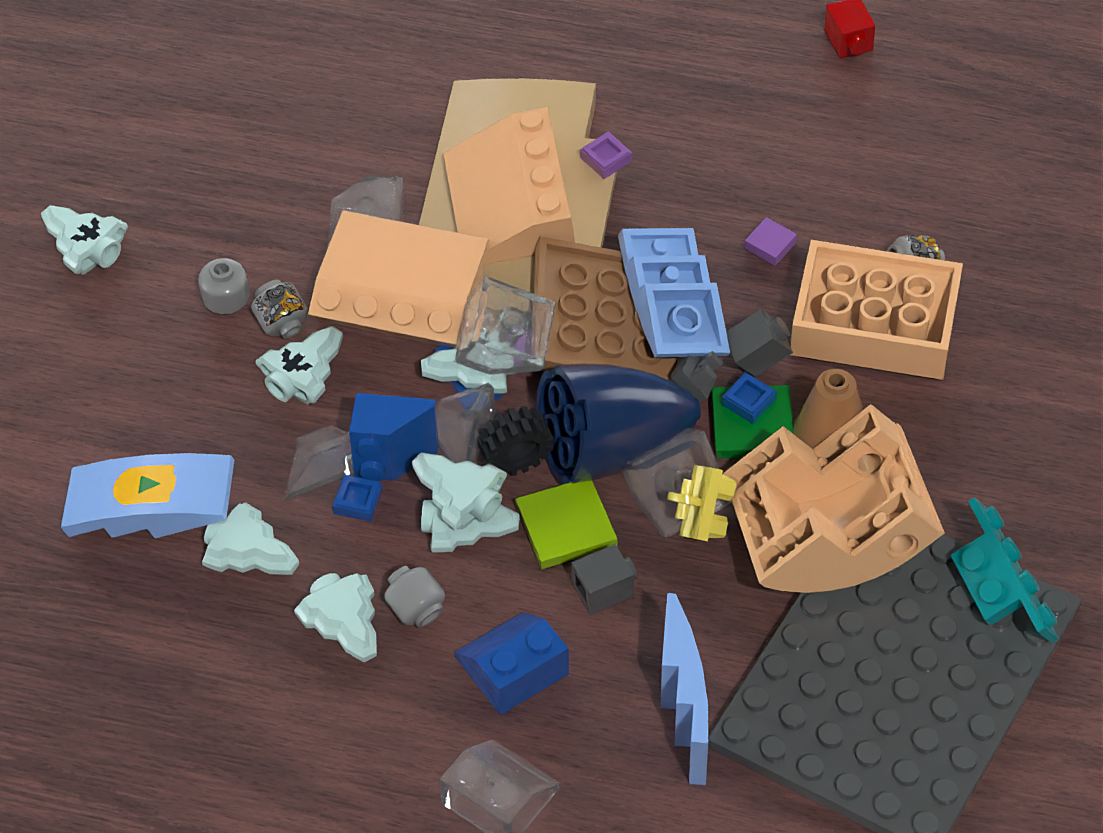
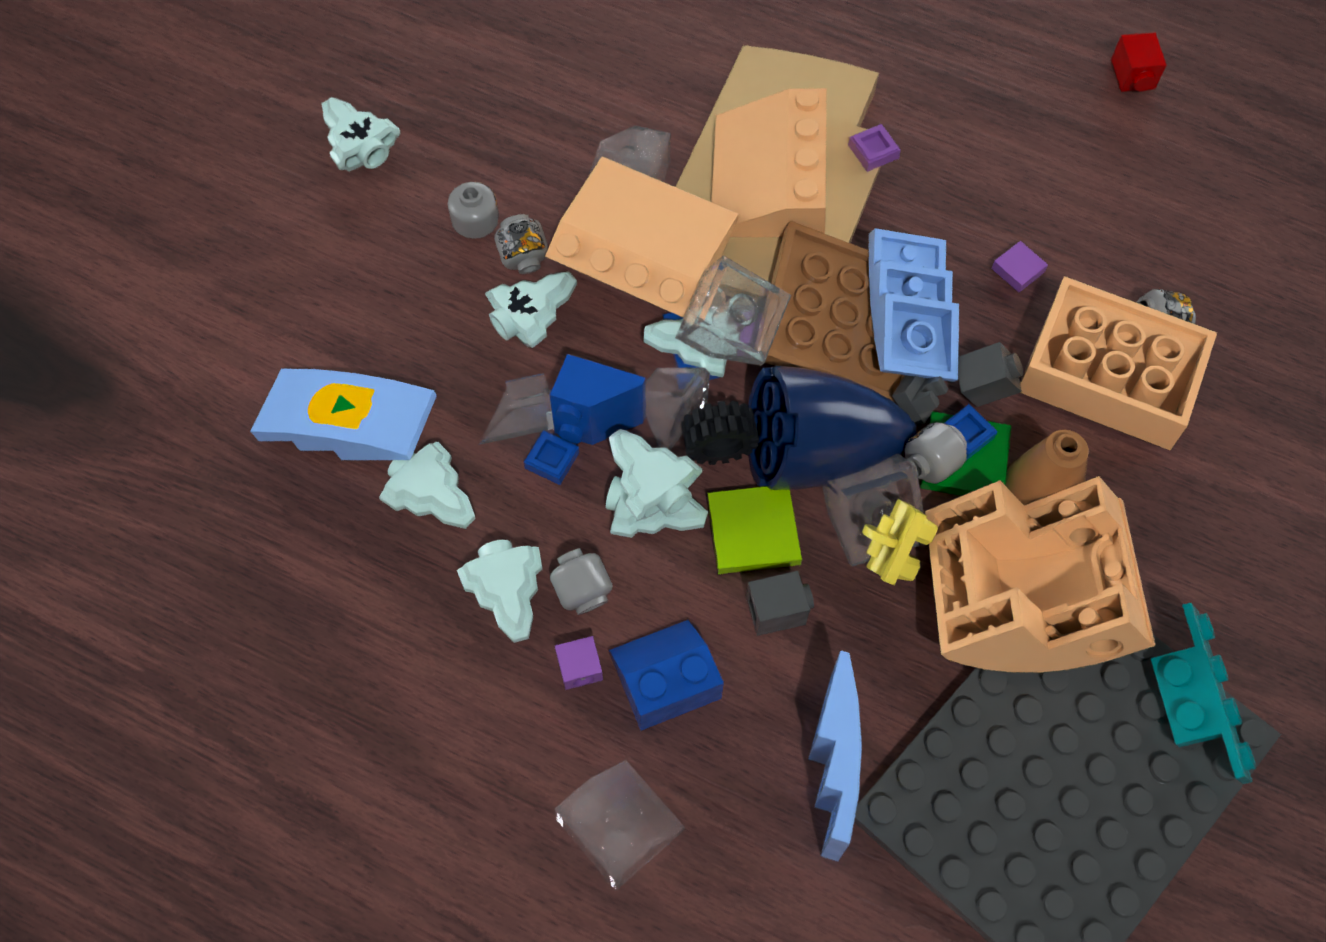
camera: 10 degrees right, 10 degrees up
(429, 667) = (579, 662): none -> medium lavender piece
(723, 418) = (936, 452): none -> light grey head

